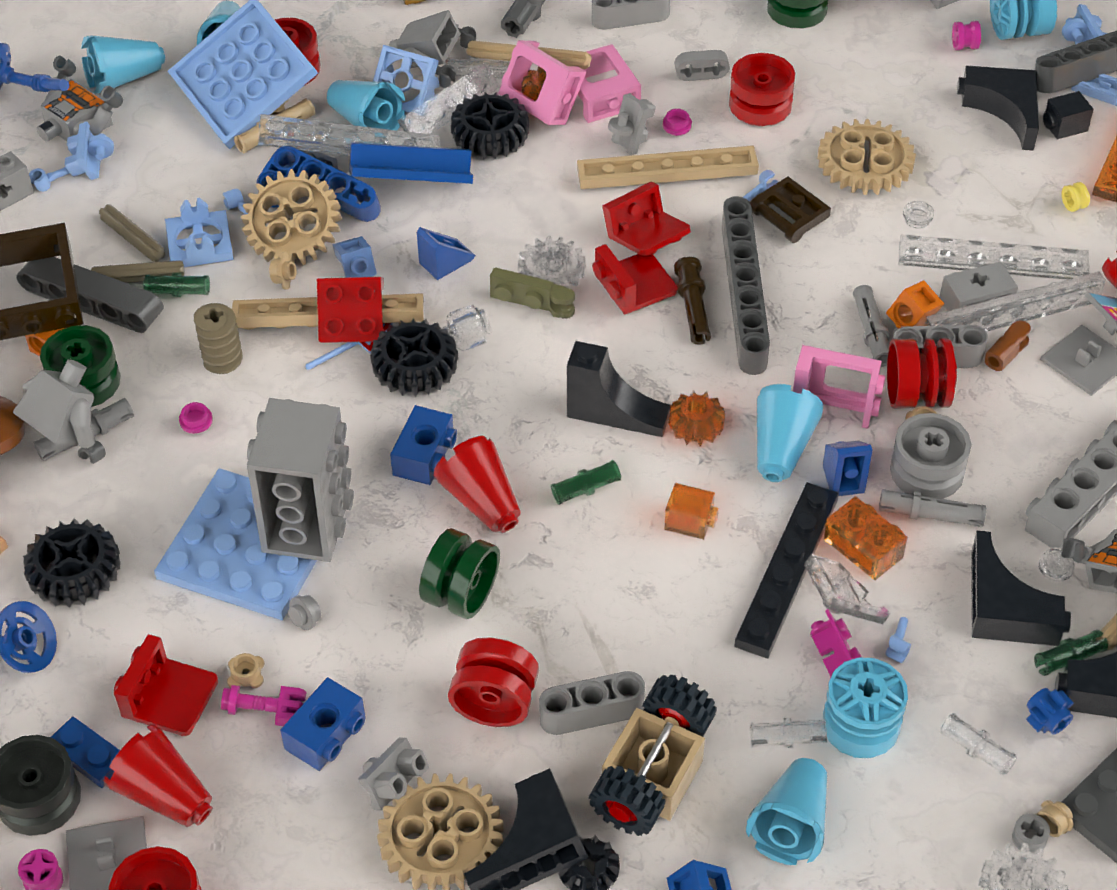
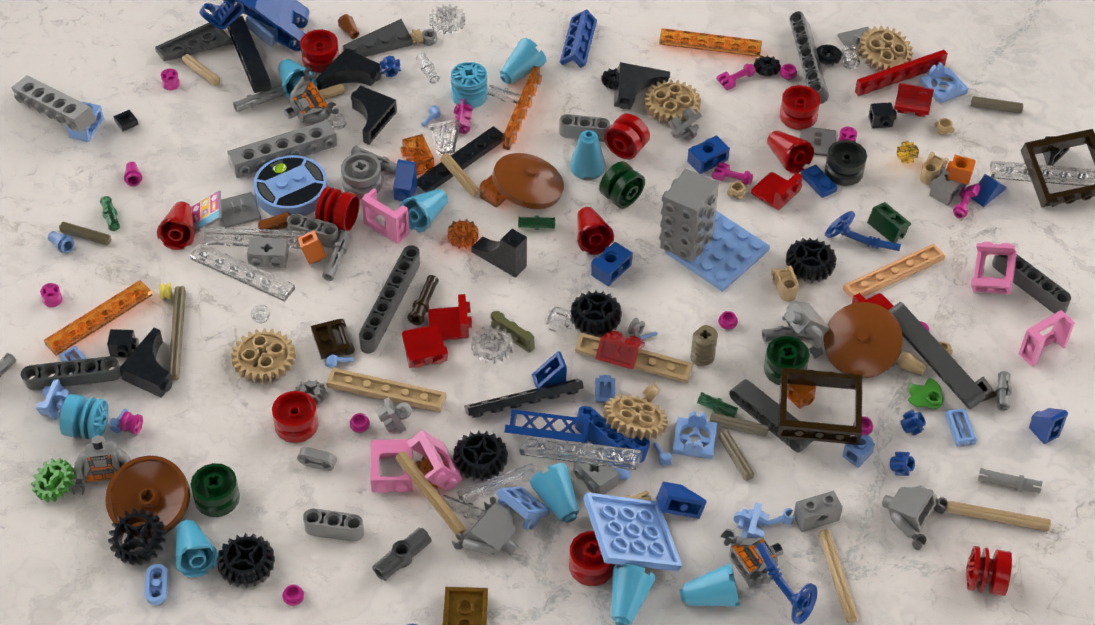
camera: 160 degrees left, 0 degrees up
(109, 504) = (785, 283): none -> tan piece
(194, 141) = (680, 501): none -> blue slope
(341, 357) = (636, 327): none -> light grey bush
(470, 208) = (532, 396): none -> black plate
(553, 625) = (587, 157): none -> medium azure cone
(638, 540) = (528, 181): none -> dark orange dish
(654, 757) = (573, 90): brick -> none
(737, 722) = (520, 110): none -> clear orange plate
(766, 516) = (460, 175): none -> tan axle
(773, 148) = (318, 388): none -> light grey gear
(987, 36) = (115, 422): none -> light blue hand
(1013, 159) = (177, 332): none -> dark tan axle
(1034, 412) = (289, 185): none -> piece
(1070, 649) = (350, 87): clear green pin -> none

